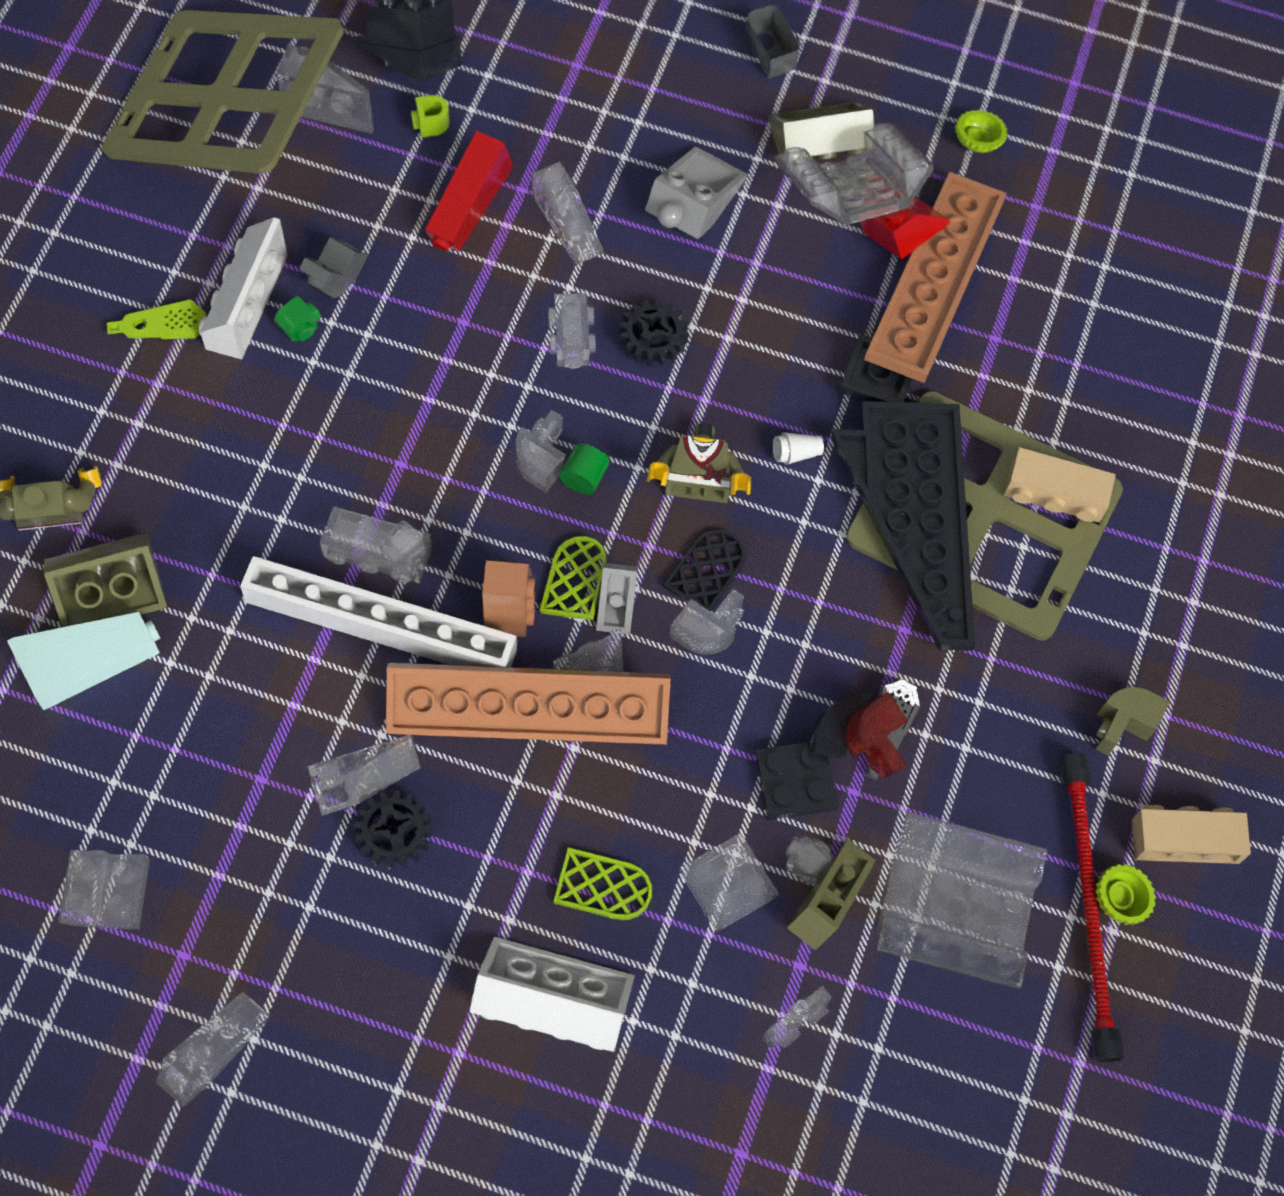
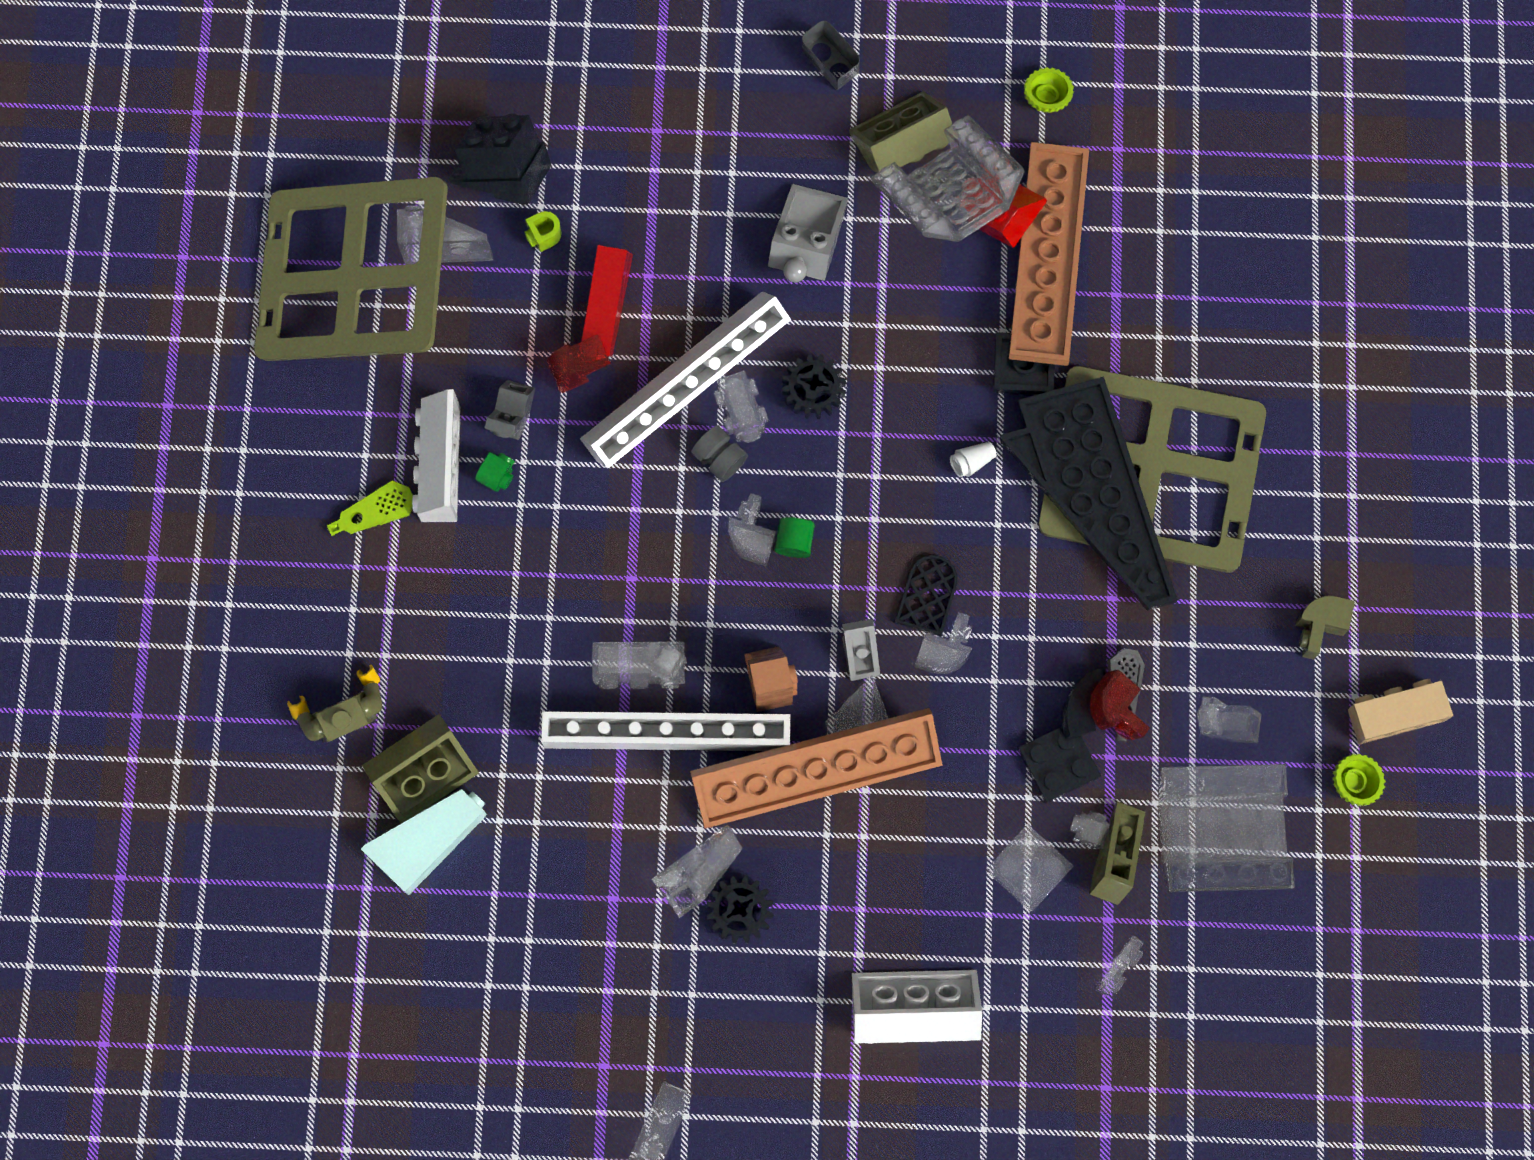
camera: 10 degrees left, 10 degrees up
(104, 890) = (520, 1032): clear slope -> none
(414, 237) = (573, 363): none -> clear red brick
(522, 286) = (685, 379): none -> white brick
(534, 368) = (722, 456): none -> dark grey wheel
(546, 608) = (840, 650): lime window -> none
(565, 212) = (695, 288): clear slope -> none
(593, 858) = (936, 924): lime window -> none
(700, 468) = (895, 505): torso -> none
(995, 790) = (1228, 722): none -> clear brick
(1059, 485) = (1211, 427): tan brick -> none
(1105, 1039) = (1373, 906): red hose -> none

